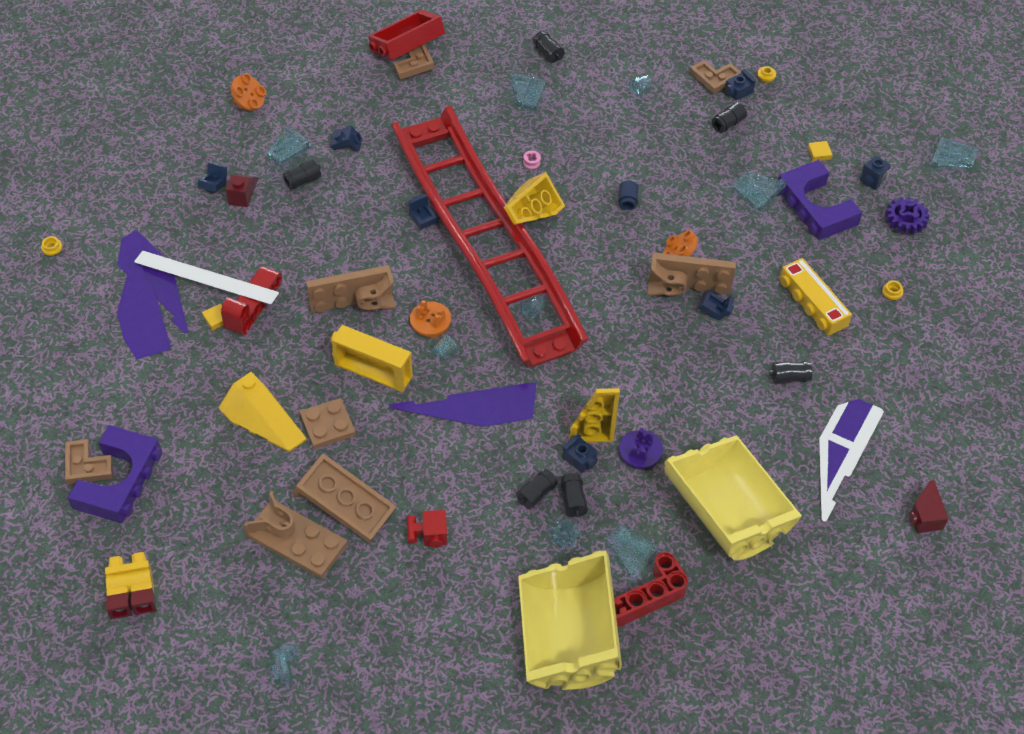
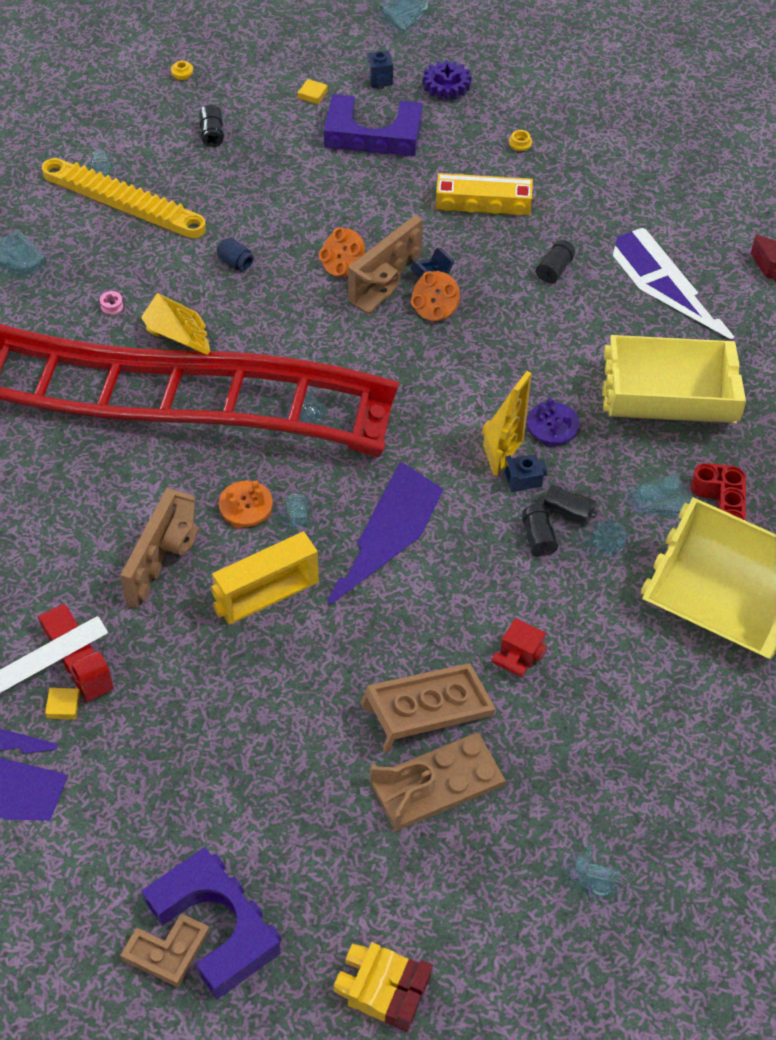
camera: 55 degrees left, 0 degrees up
(258, 411) = (241, 727): yellow wedge -> none
(327, 423) = (306, 671): medium nougat plate -> none
(422, 212) = (96, 432): dark blue bracket -> none
(625, 114) = (124, 197): none -> yellow gear
(689, 320) = (426, 290): none -> orange plate
(713, 79) = (149, 109): medium nougat plate -> none
(740, 85) = (178, 94): dark blue brick -> none
(758, 188) = (321, 157): clear light blue wing -> none

